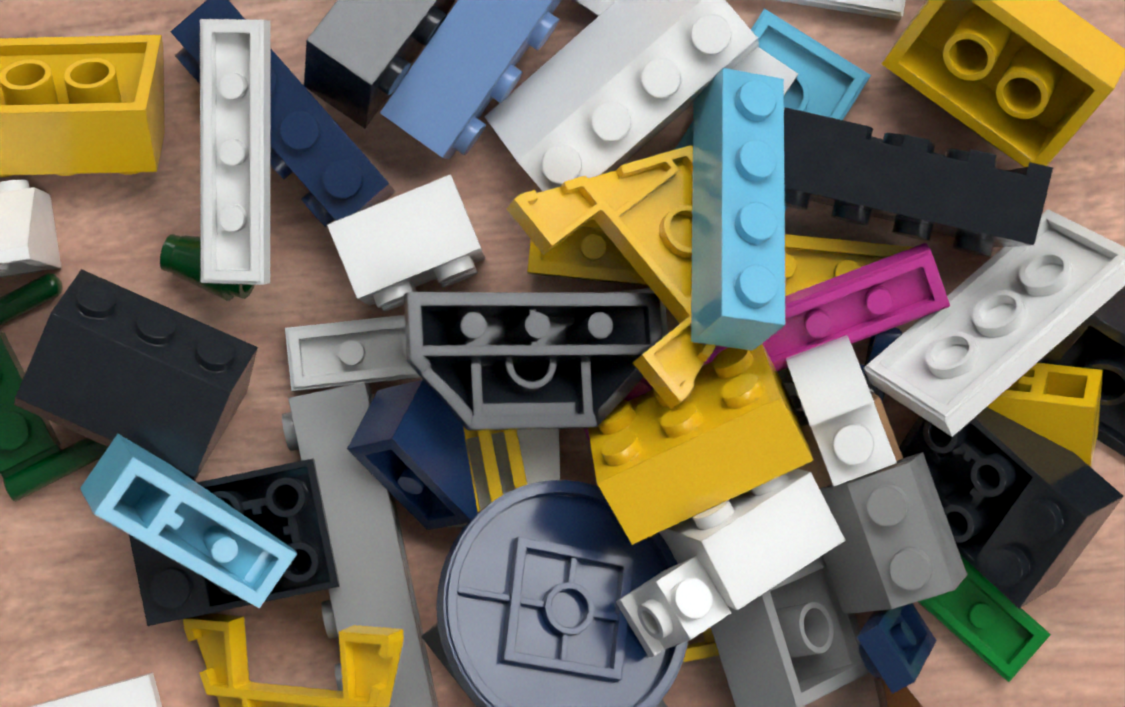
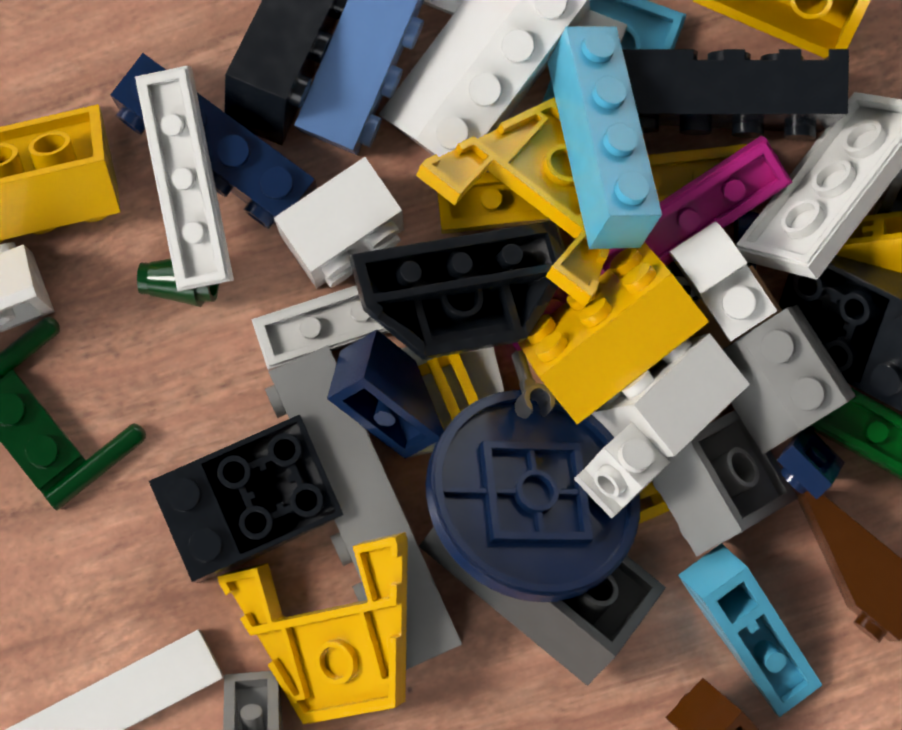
camera: 15 degrees left, 5 degrees down
(136, 371) = (140, 379): black slope -> none
(185, 521) = (210, 482): medium azure slope -> none
(586, 485) = (530, 389): none -> flat silver hand

